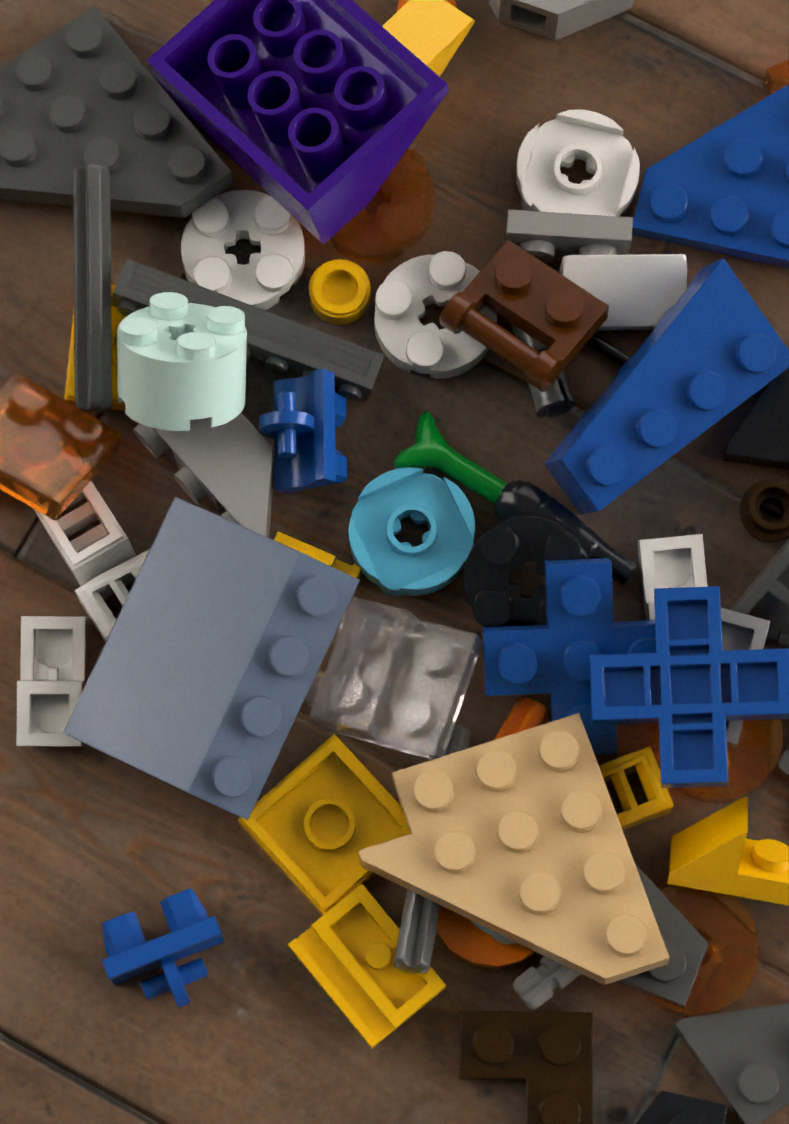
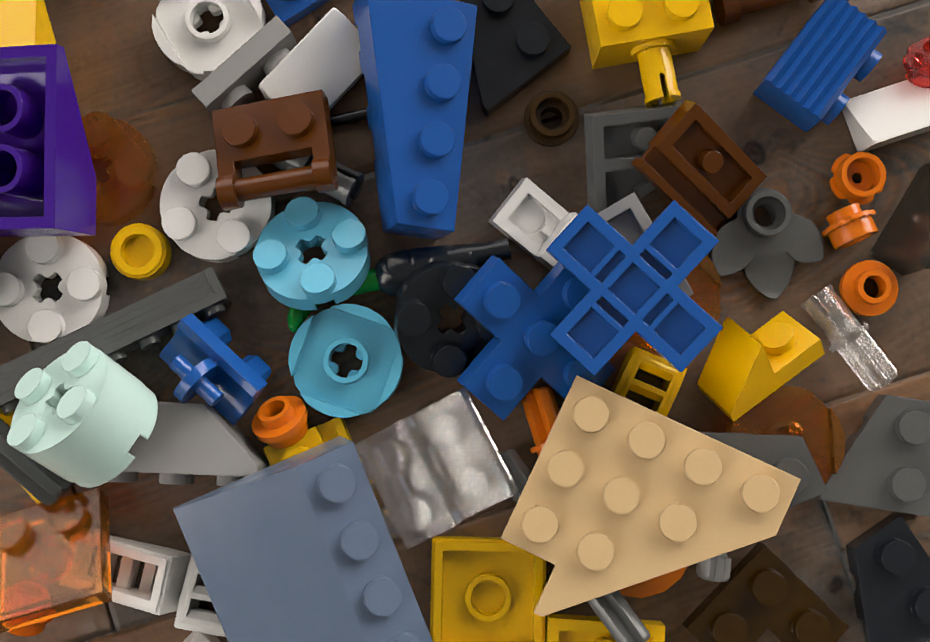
camera: 45 degrees left, 10 degrees up
(313, 524) = (281, 421): none -> orange plate
(482, 395) = (306, 226): none -> medium azure plate

